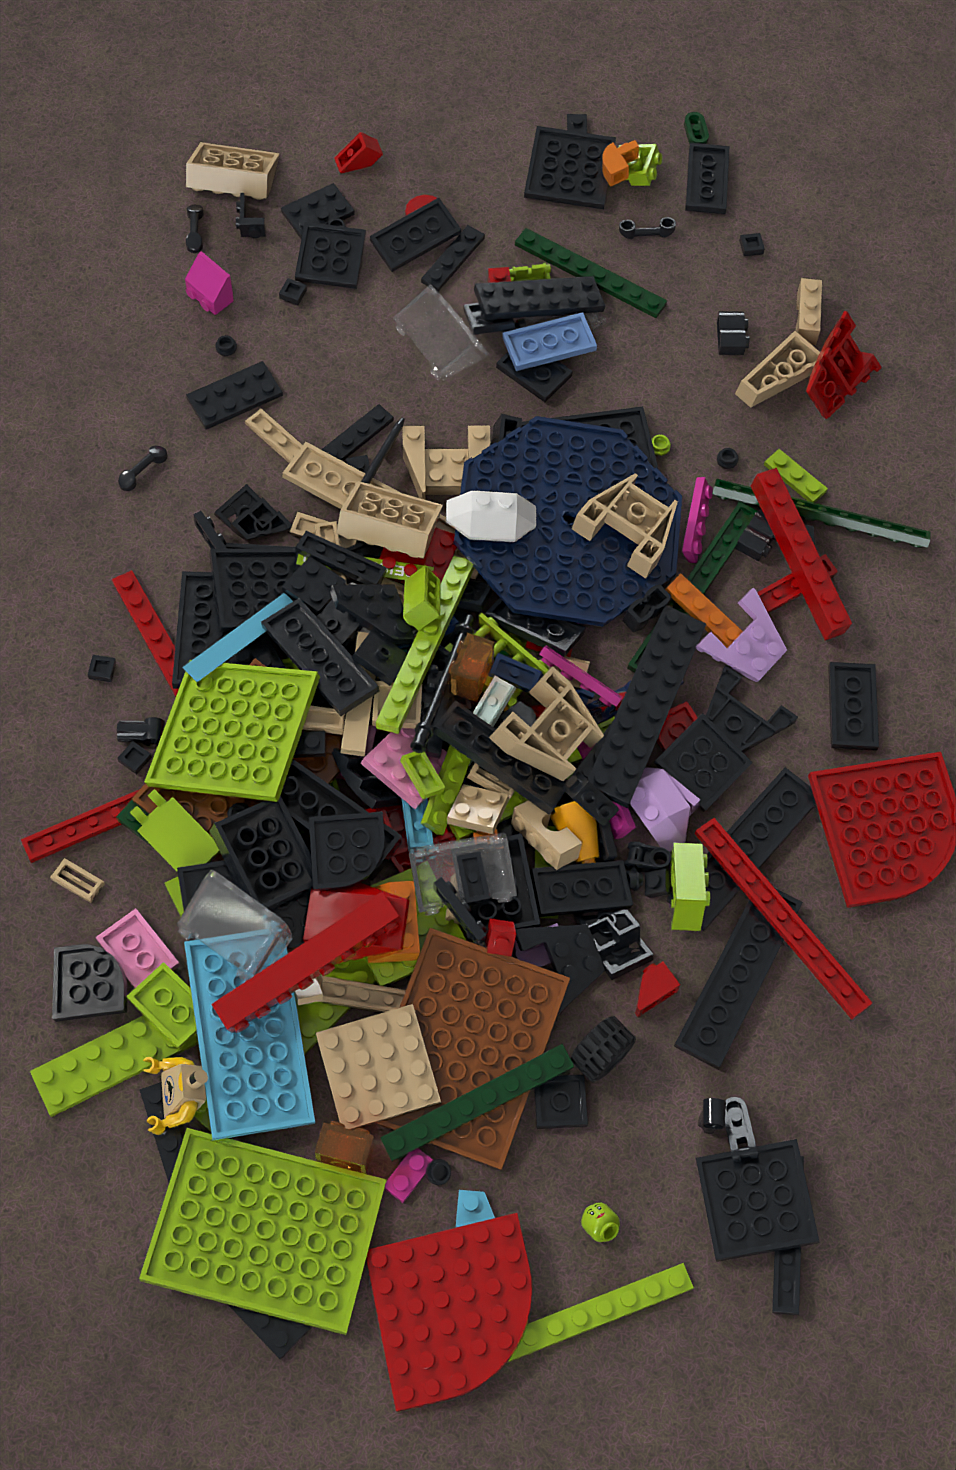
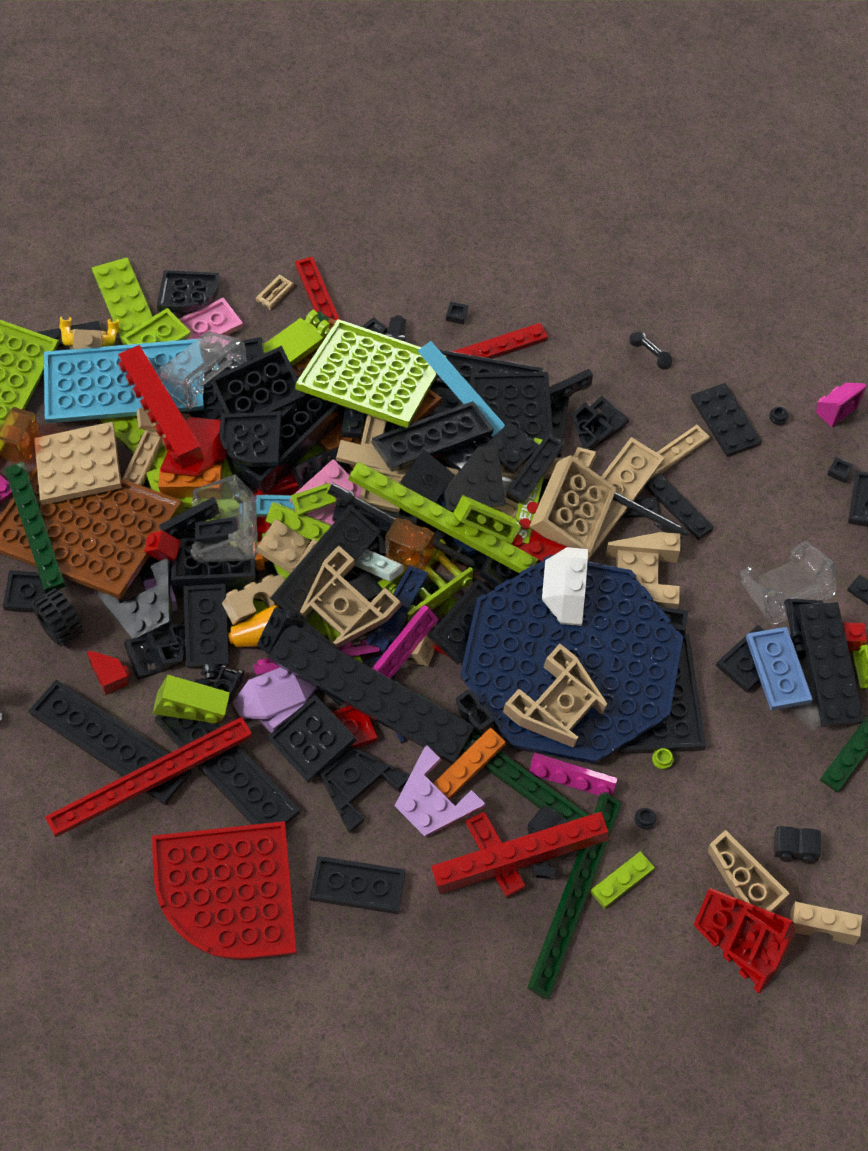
camera: 95 degrees right, 5 degrees down
(606, 844) = (242, 652): black plate -> none

